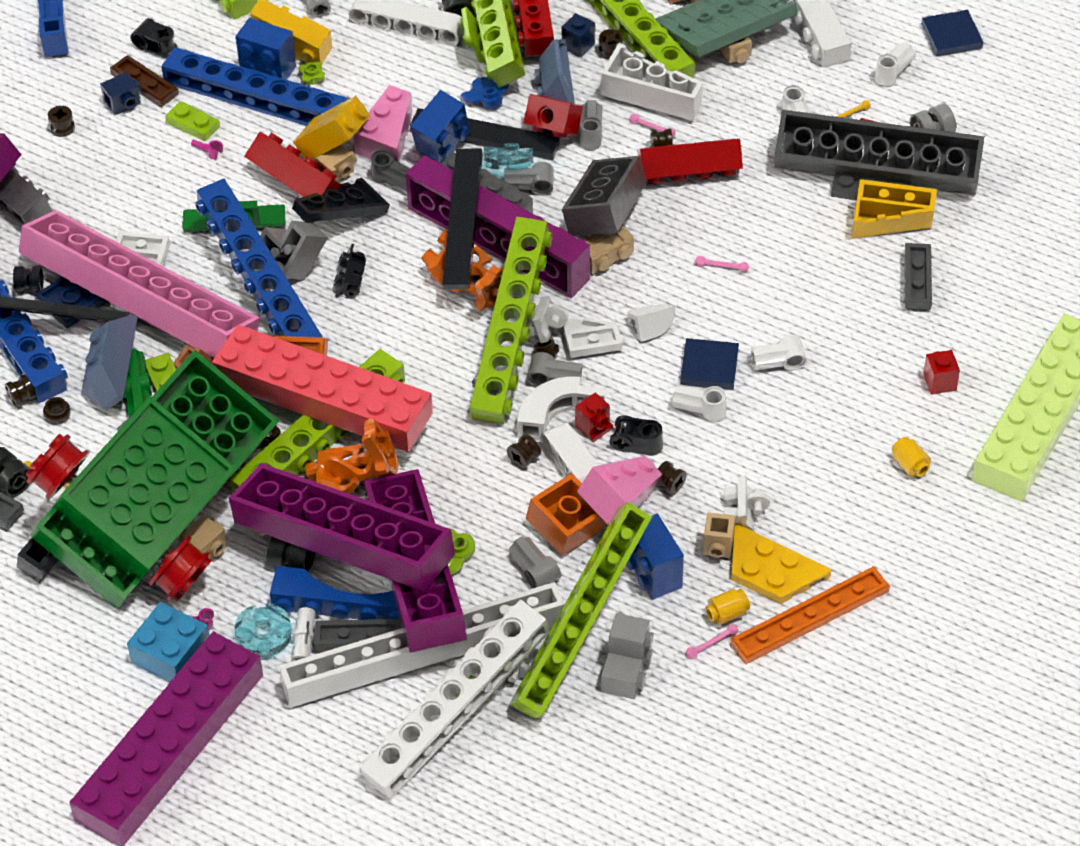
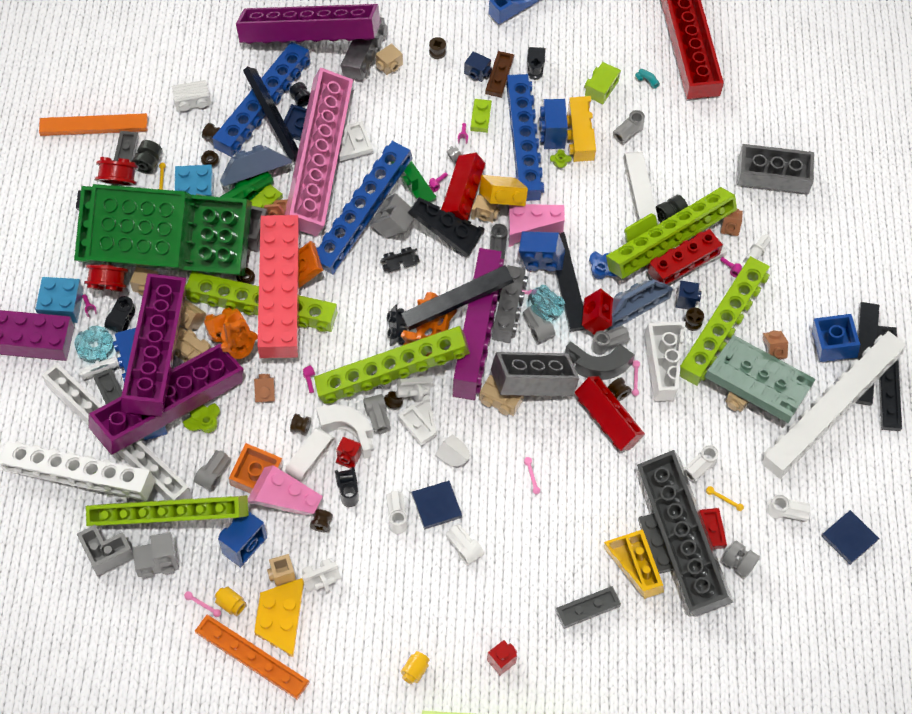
camera: 60 degrees right, 10 degrees up
(44, 171) = (389, 59): none -> tan brick
(91, 427) = (195, 179): none -> dark azure brick
(234, 164) = (453, 153): none -> light grey plate
(240, 583) = (120, 315): none -> black piece
(261, 199) = (434, 183): none -> dark pink hand
(442, 311) = (395, 320): none -> black hinge
(448, 470) = (264, 388): none -> nougat bracket
(452, 422) = (307, 373): none -> dark pink hand
(583, 717) = (104, 554): none -> light grey brick
(624, 143) = (605, 366): none -> dark grey arch

